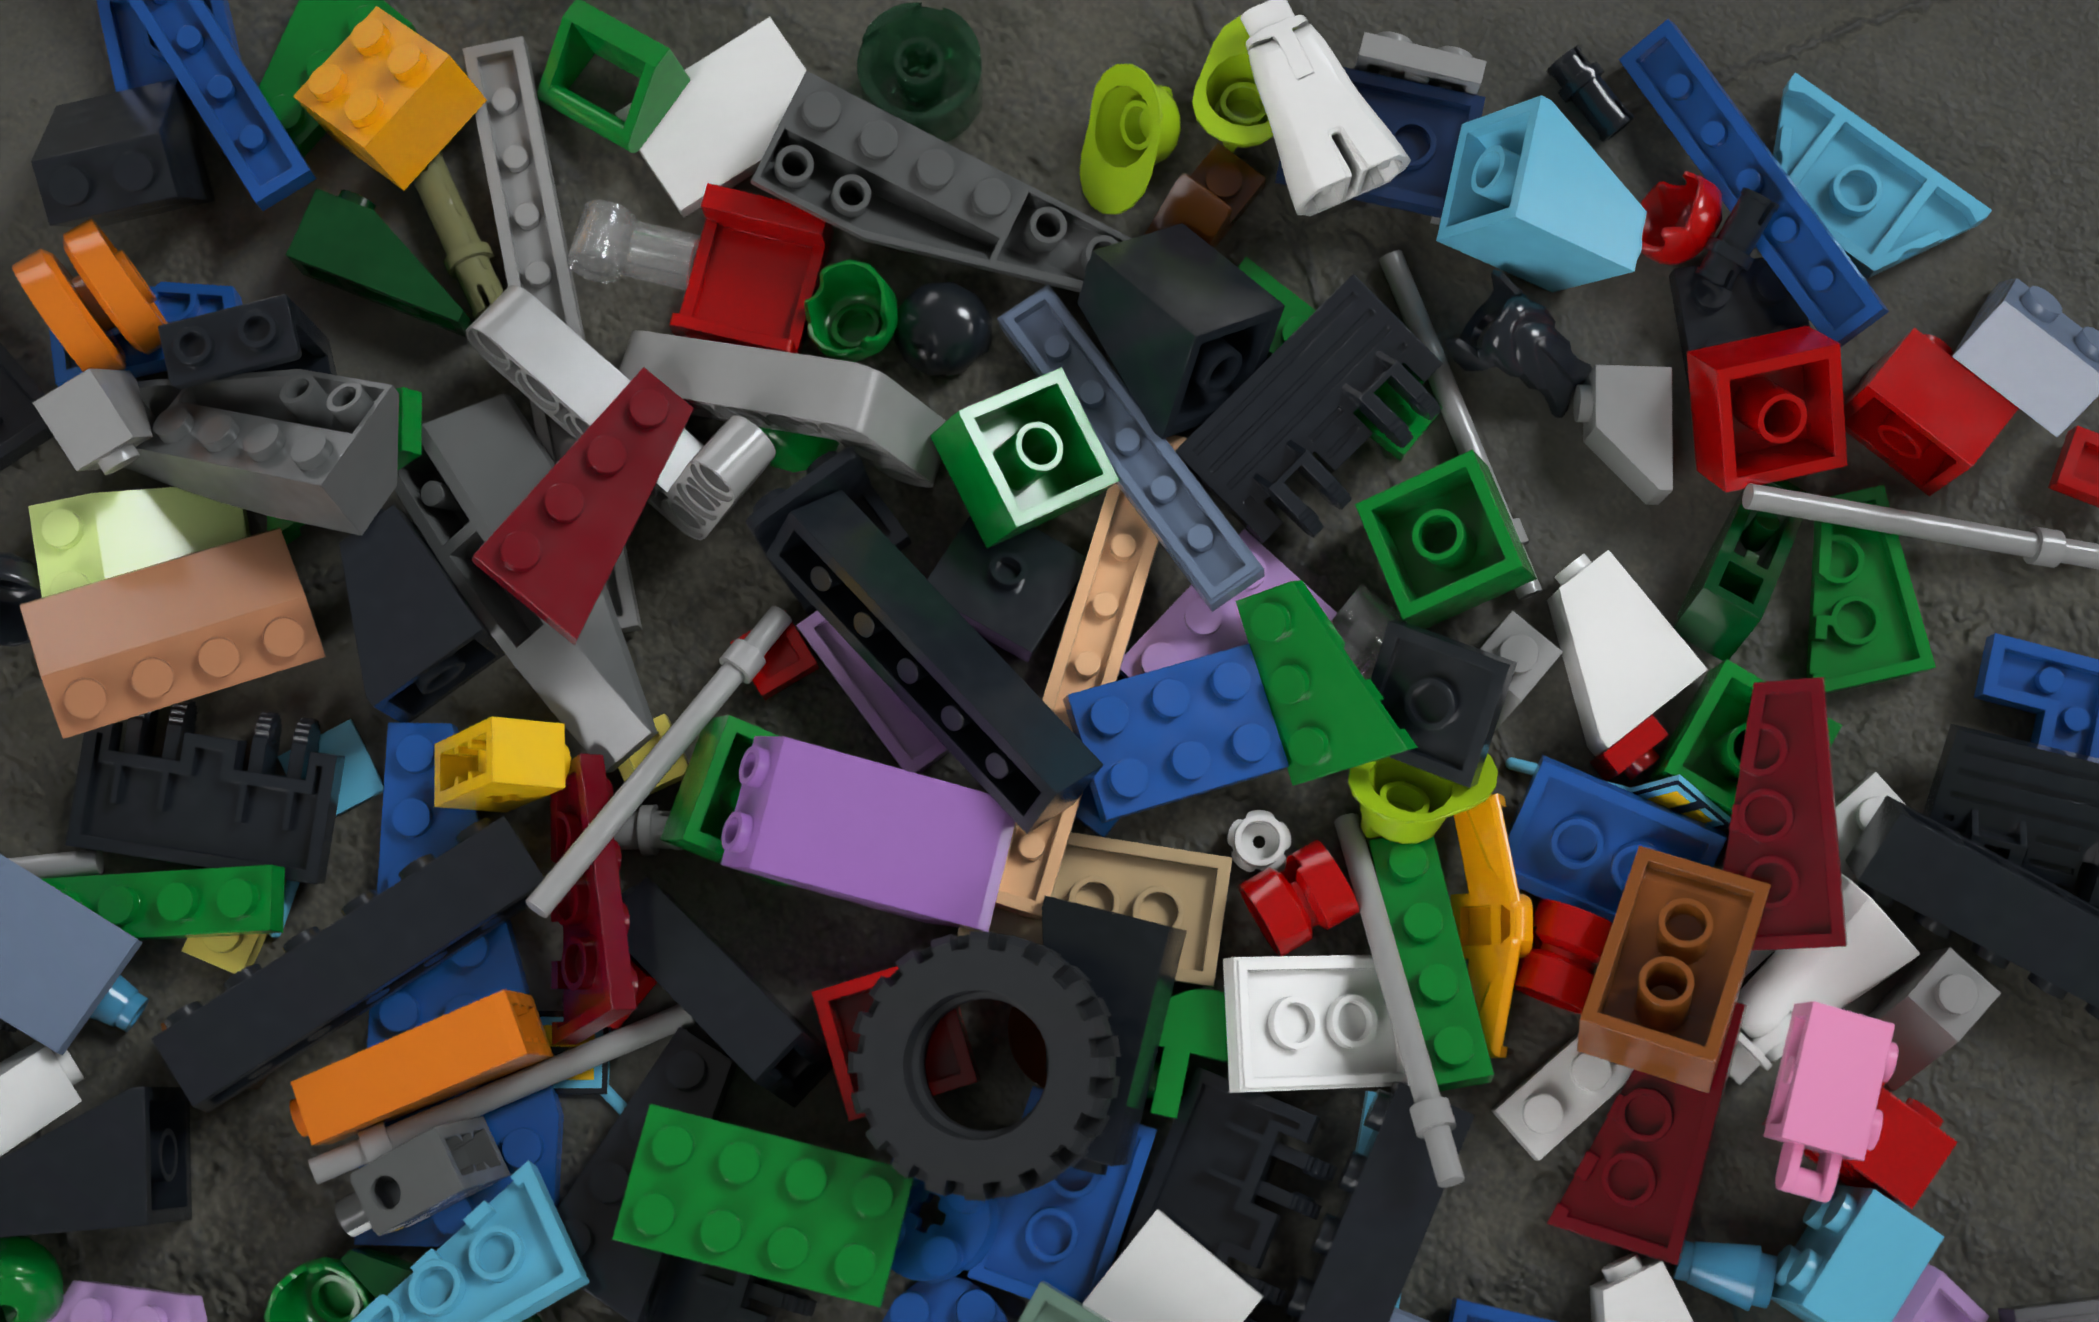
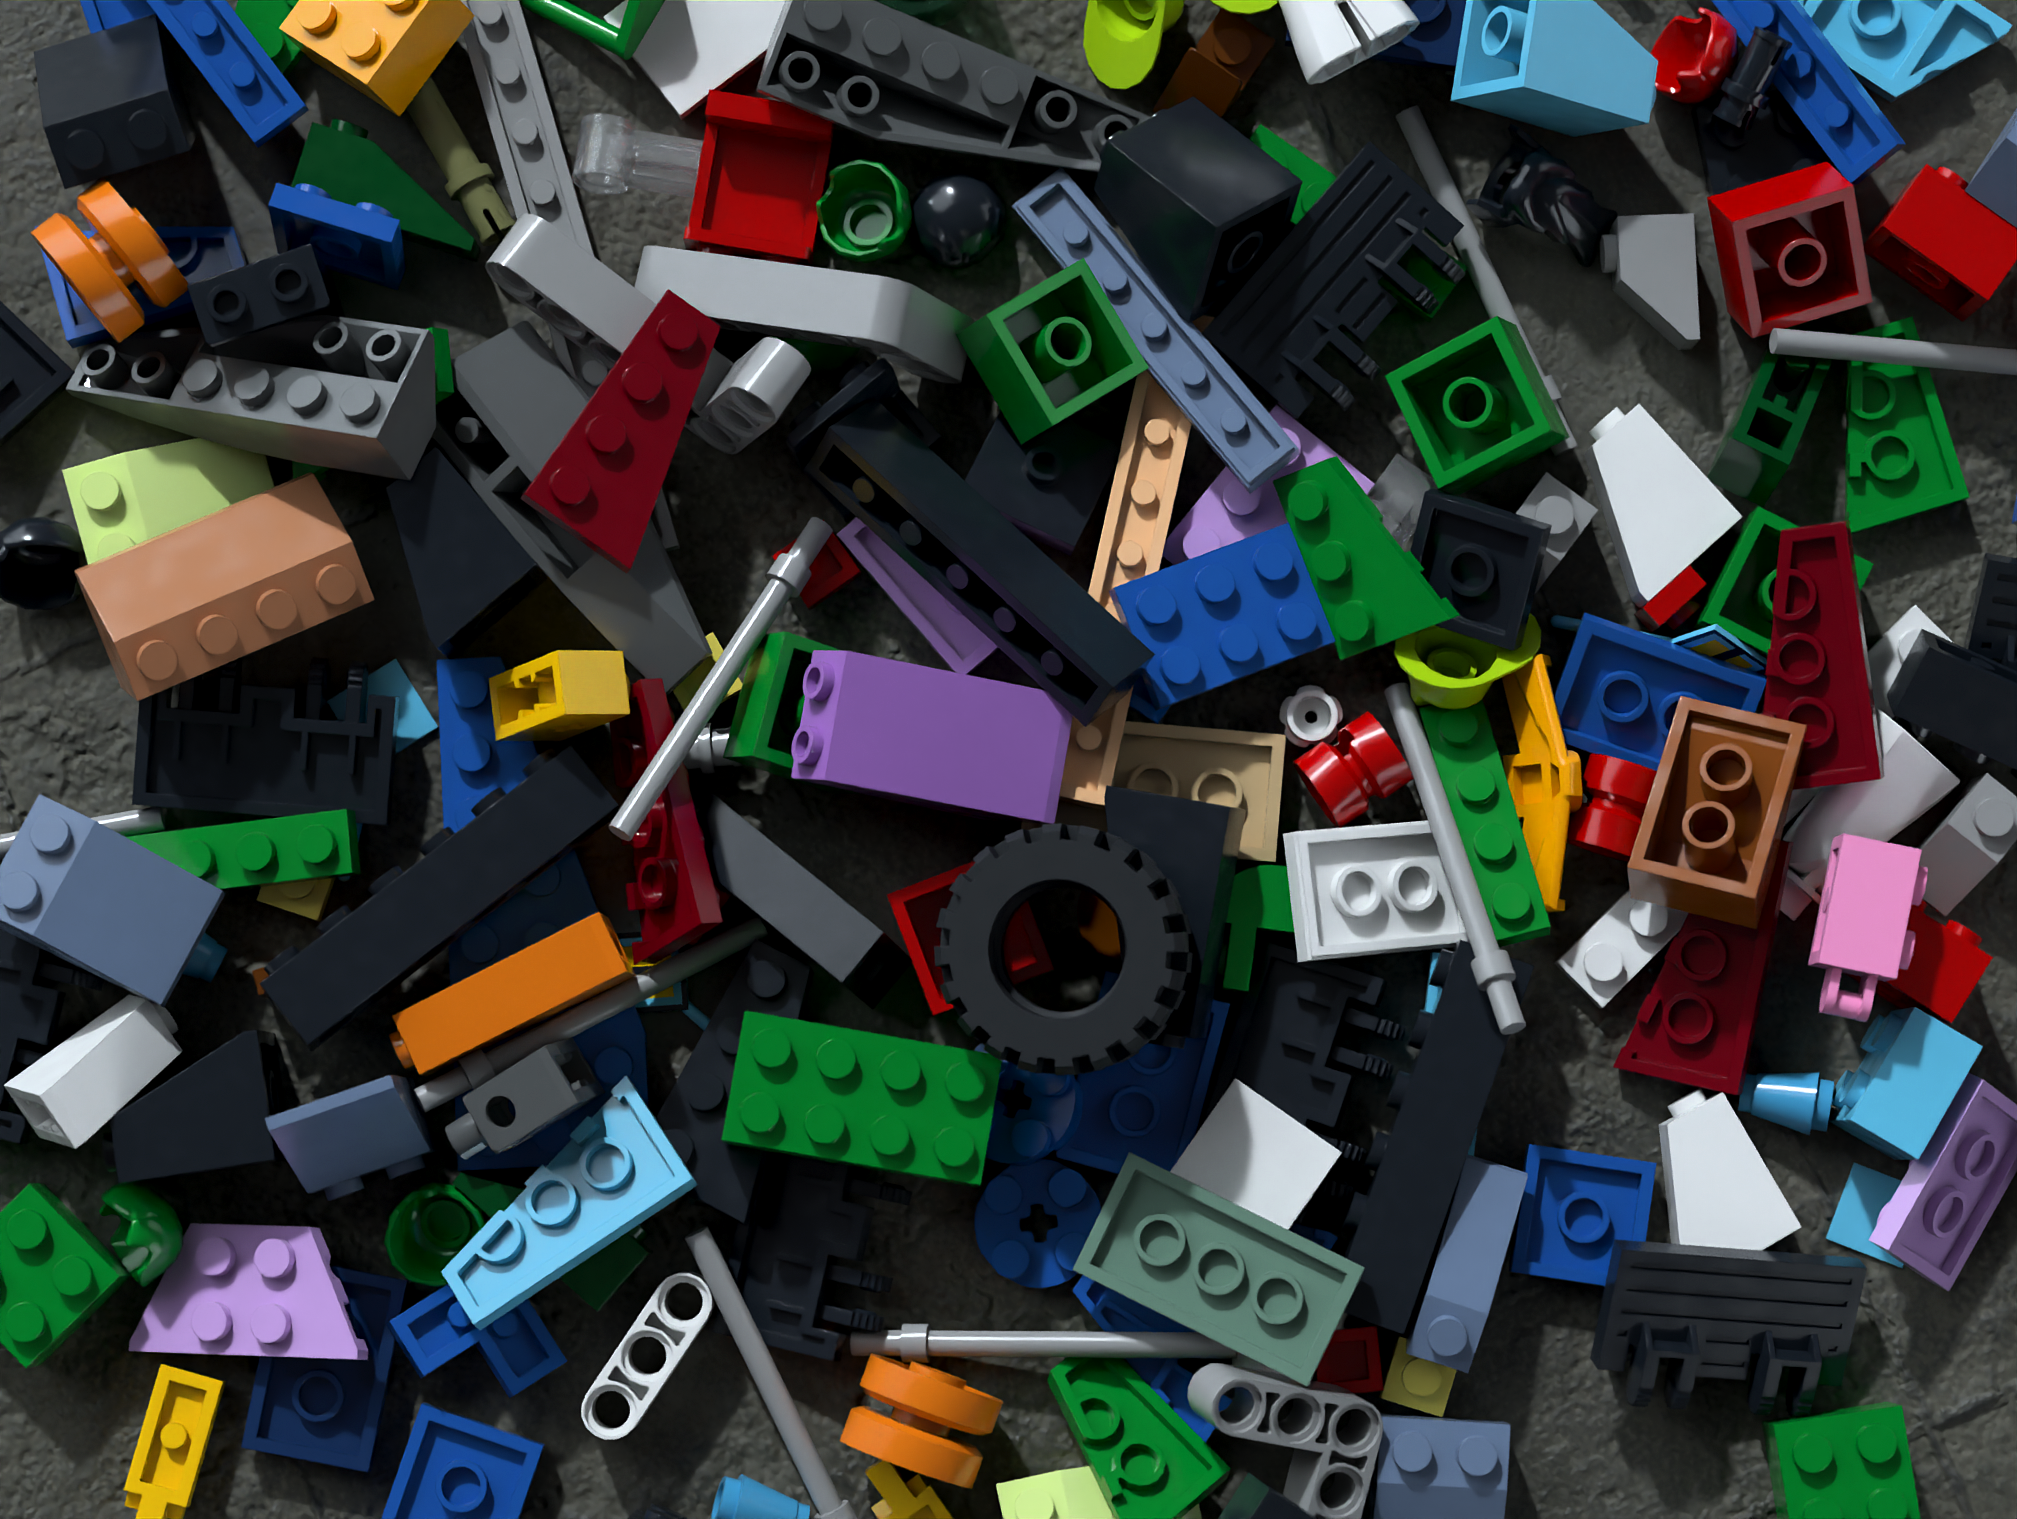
camera: 10 degrees left, 5 degrees up
(97, 419) = (135, 384): light grey slope -> none
(240, 1203) = (354, 1135): none -> sand blue slope
(339, 299) = (348, 238): none -> blue plate

